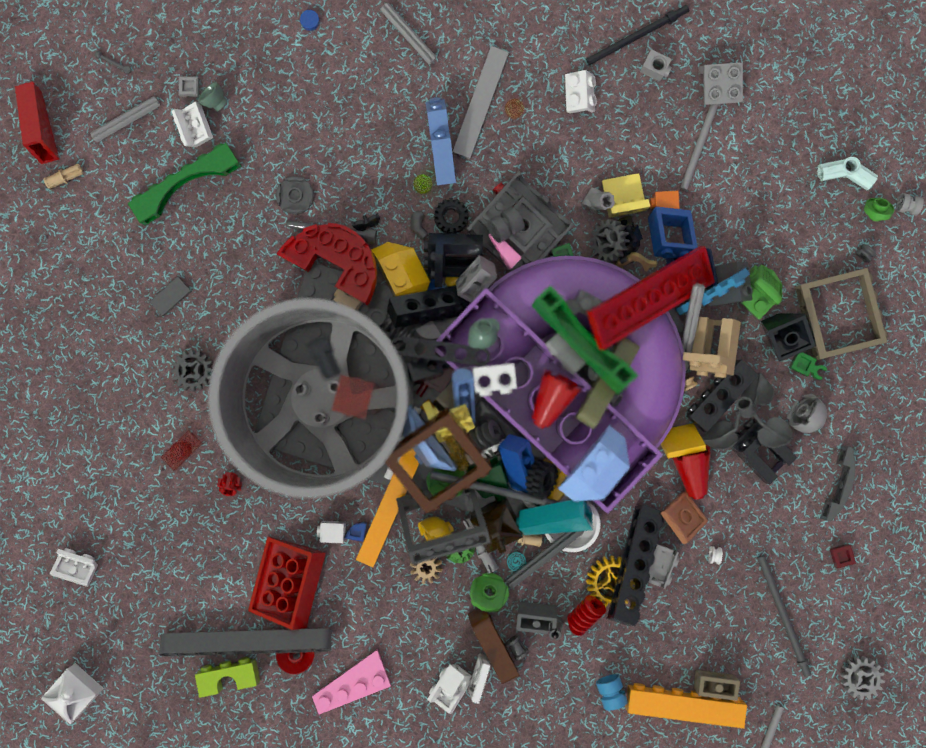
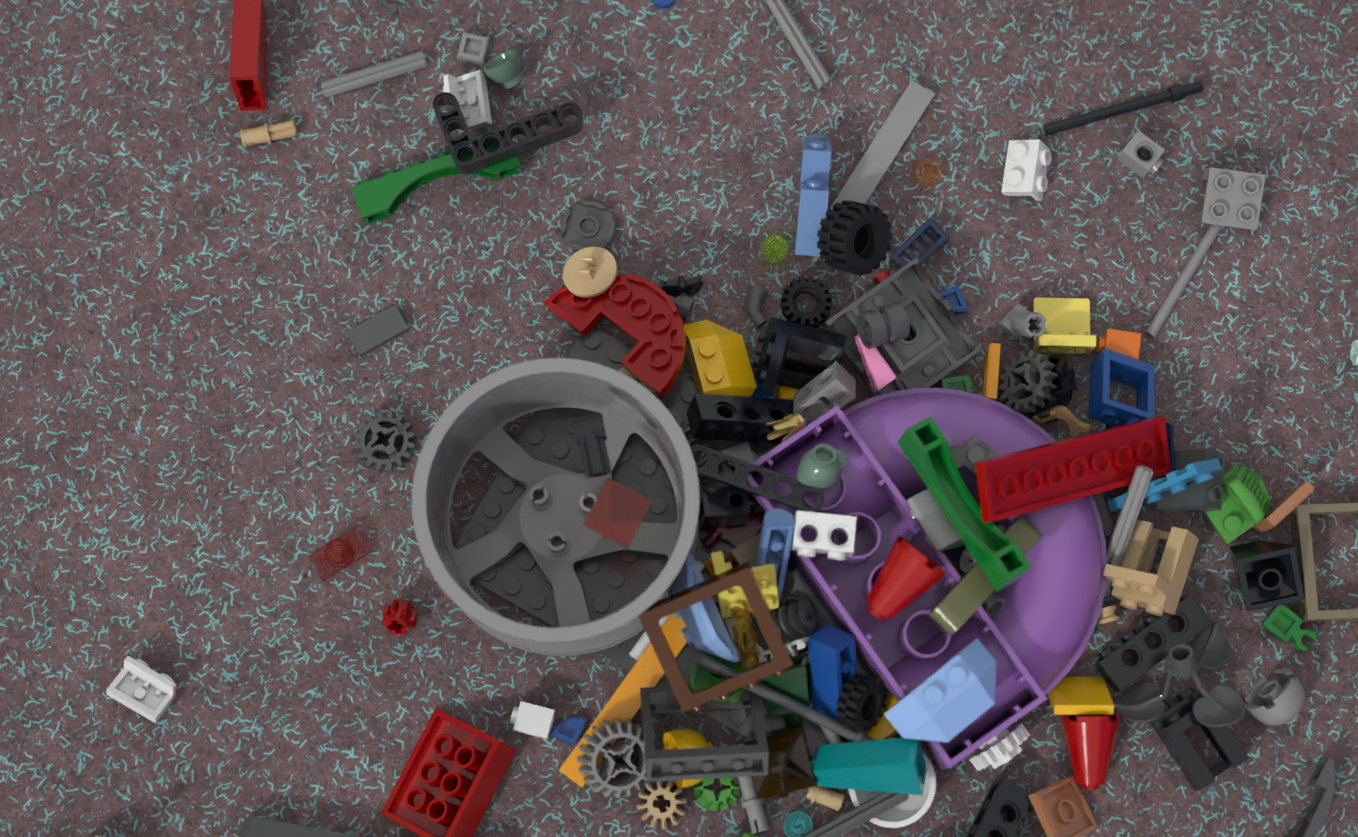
camera: 15 degrees right, 10 degrees down
(221, 145) = (502, 136): none -> black beam
(302, 226) = (590, 272): none -> tan piece
(395, 554) = (610, 768): none -> light grey gear
(459, 304) = (790, 424): none -> pearl gold piece
(474, 165) = (854, 237): none -> black tyre
(523, 144) = (936, 230): none -> dark blue slope
(550, 193) = (956, 299): none -> blue tile
(583, 237) = (991, 371): none -> light orange tile
(639, 488) = (1000, 748): none -> white gear
(793, 287) = (1284, 507): none -> nougat tile

